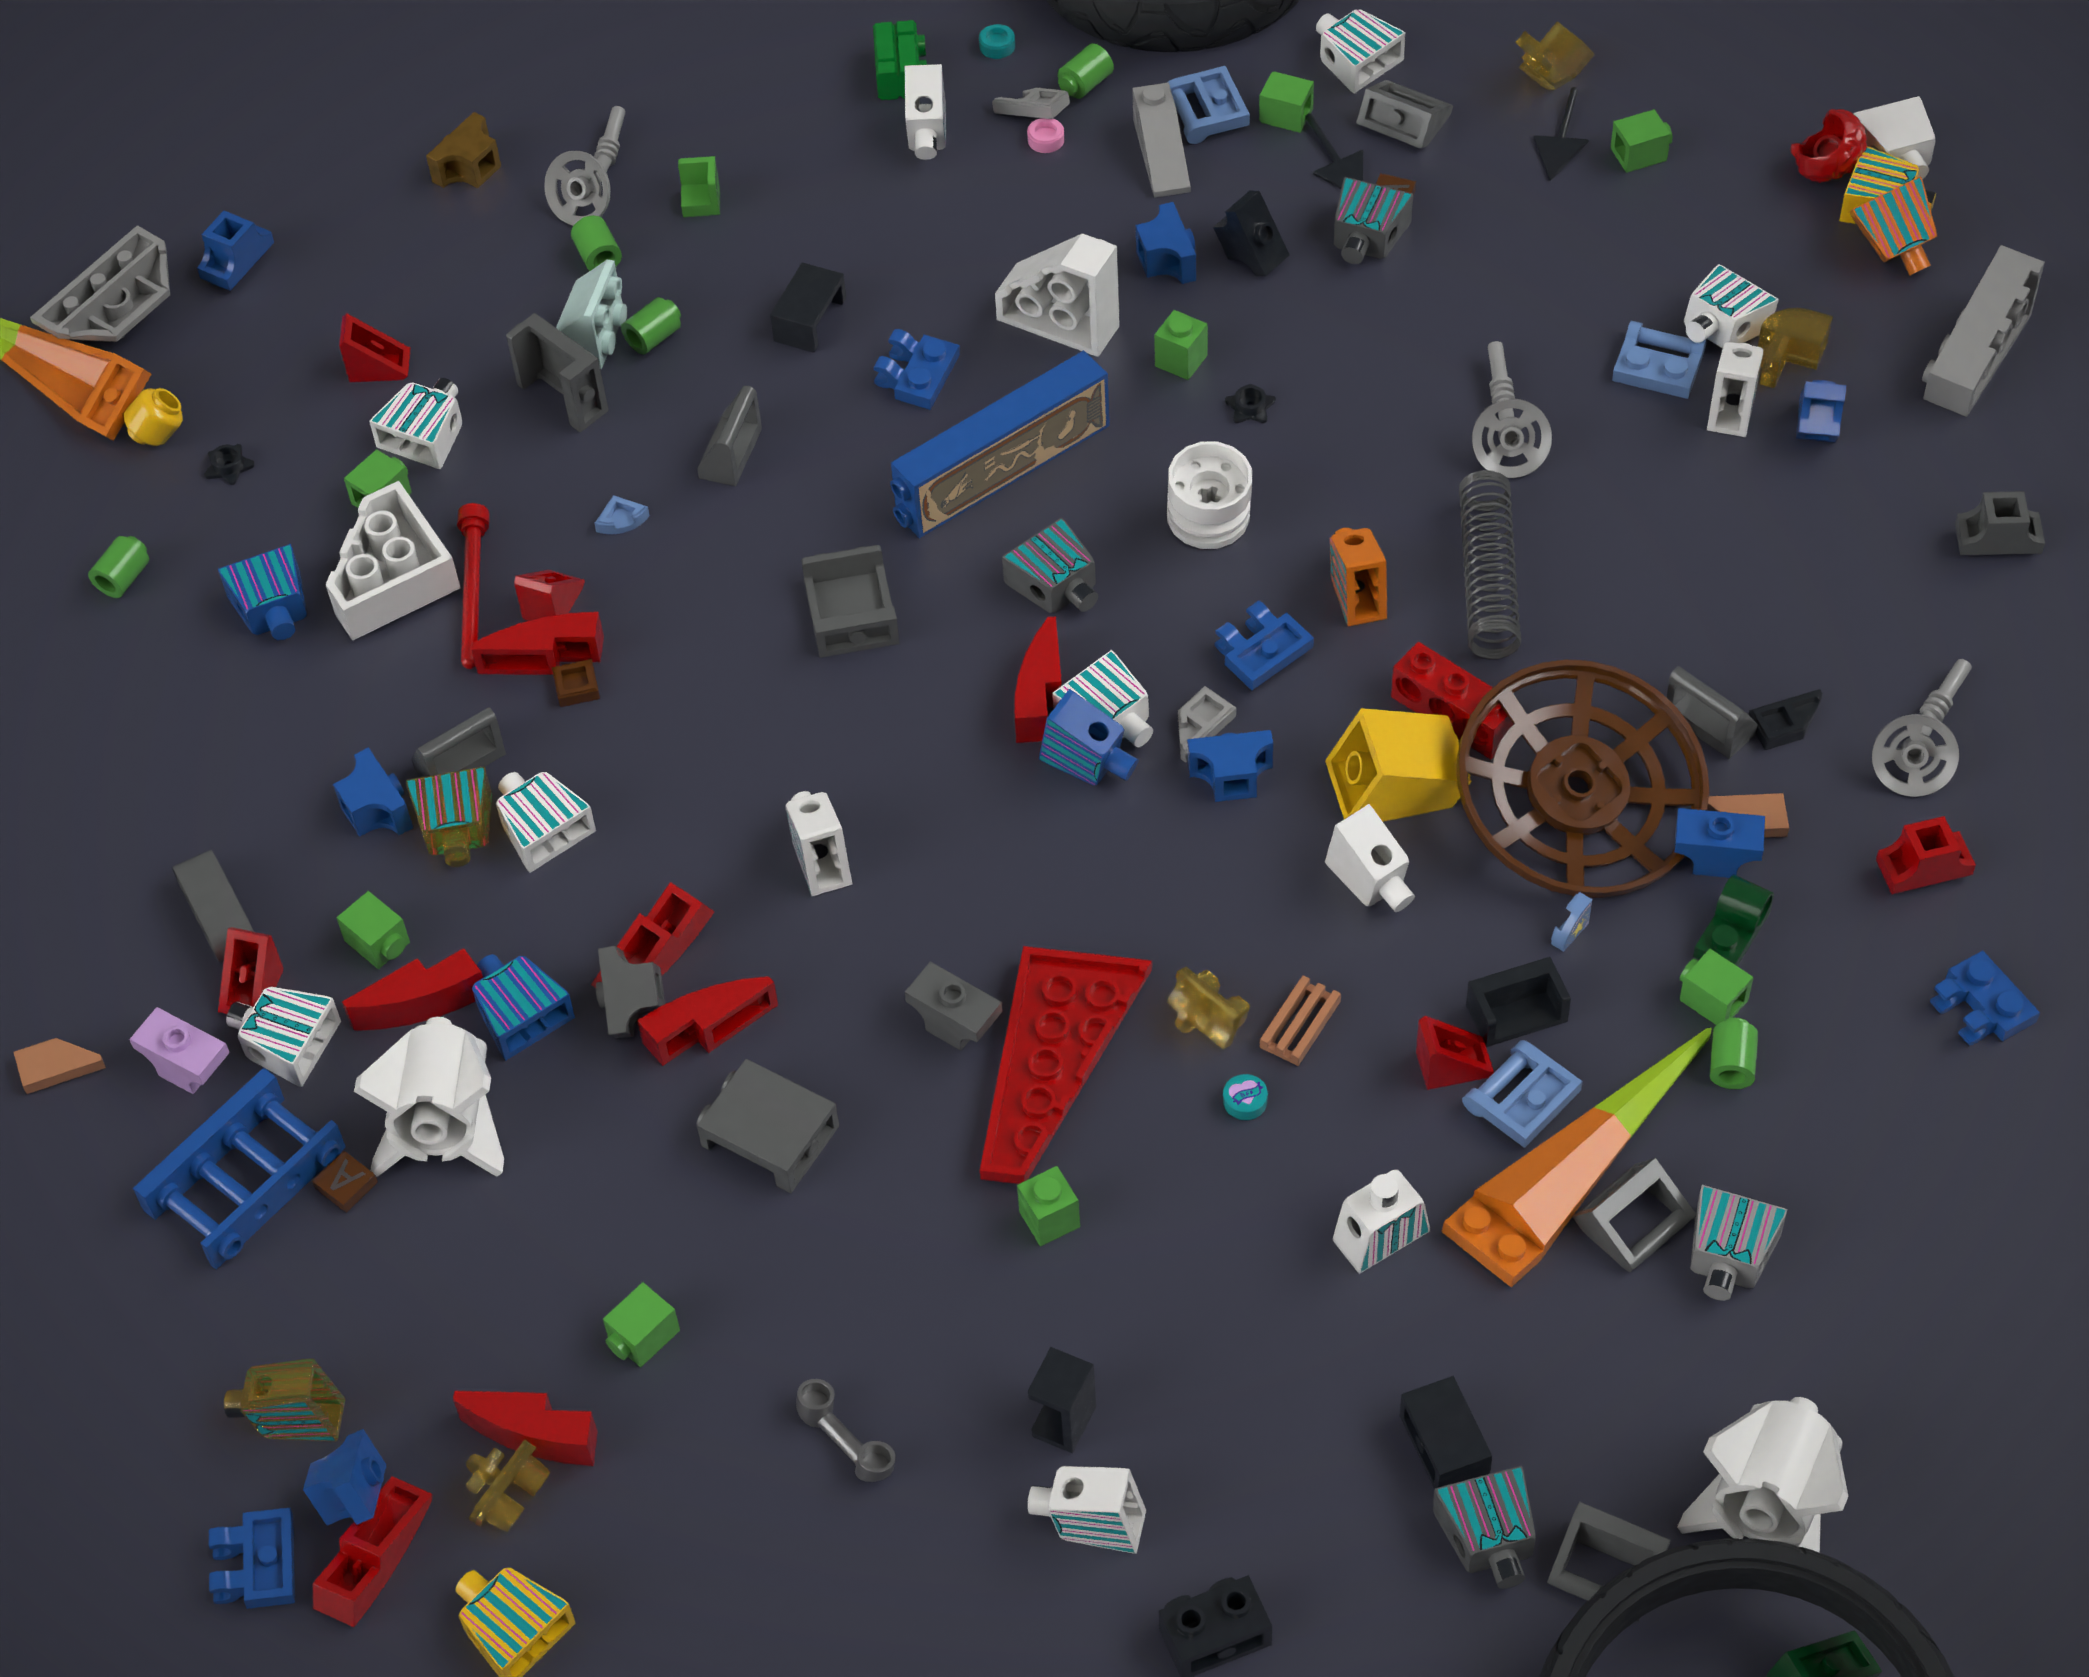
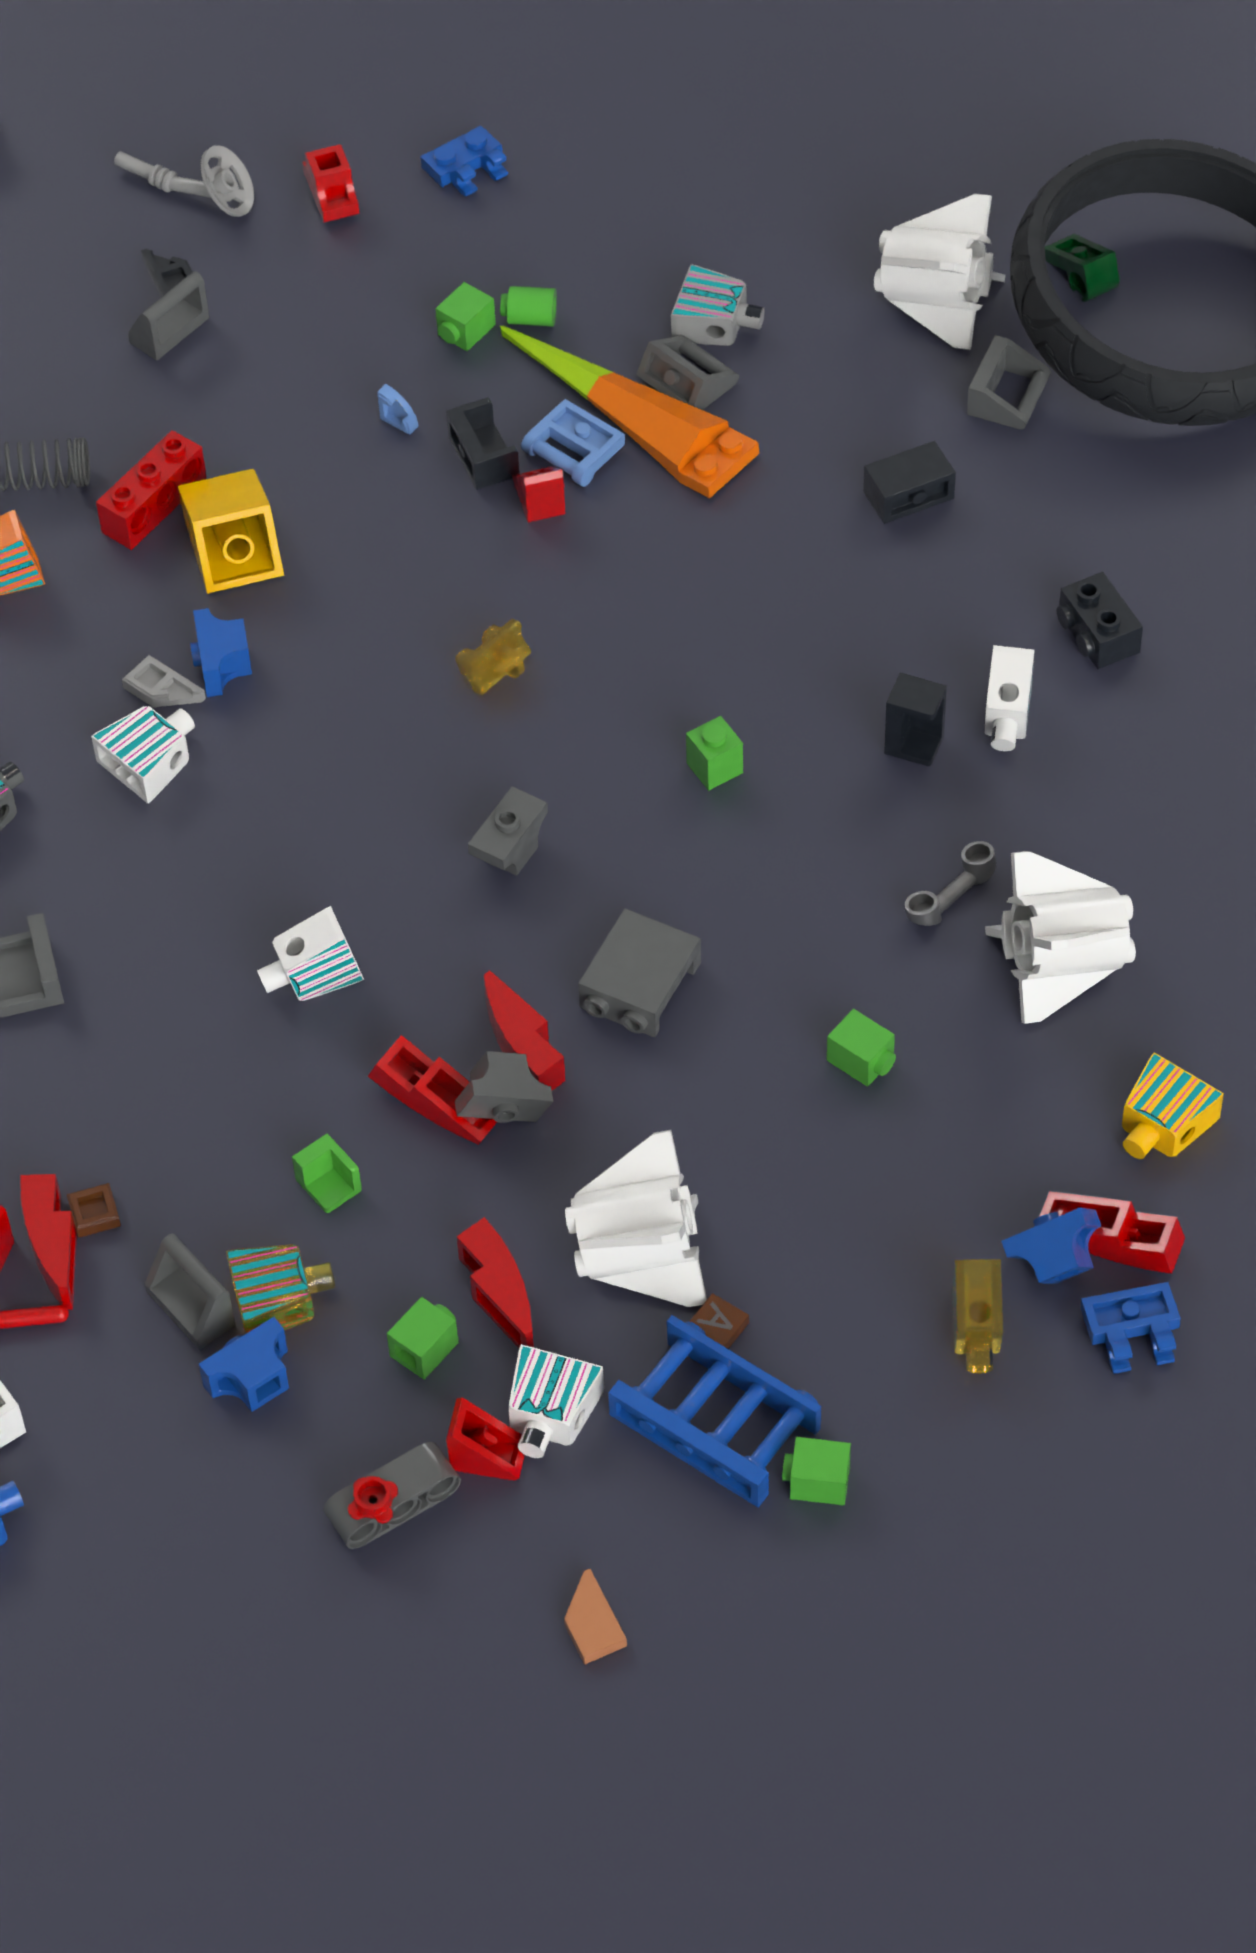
camera: 95 degrees left, 0 degrees up
(152, 1253) = (818, 1470): none -> bright green brick
(179, 1050) = (587, 1477): lavender brick -> none
(187, 865) = (368, 1488): none -> red plate
(495, 1504) = (1034, 1134): clear yellow hips -> none
(519, 1003) = (511, 1194): blue torso -> none
(528, 1416) = (972, 1120): red slope -> none
(542, 817) = (279, 1207): white torso -> none
(577, 861) = (327, 1173): none -> bright green panel
(732, 1517) = (1061, 933): none -> white brick
(1036, 683) = (115, 804): red slope -> none
(1055, 1034) = (489, 755): red wing -> none
(1084, 741) = (198, 758): blue torso -> none
(1245, 1097) = (584, 631): teal tile -> none
(1268, 651) = (83, 632): blue plate -> none
(1315, 994) = (505, 592): nougat tile -> none
(1369, 860) = (338, 540): white torso -> none
(1387, 1217) = (715, 522): white torso -> none
(1489, 1523) = (985, 452): dark grey torso -> none
(1583, 758) = (249, 400): reddish brown dish -> none
(1719, 840) = (316, 305): blue brick -> none
(1736, 920) = (384, 304): dark green plate -> none
(1767, 805) = (276, 297): nougat tile -> none

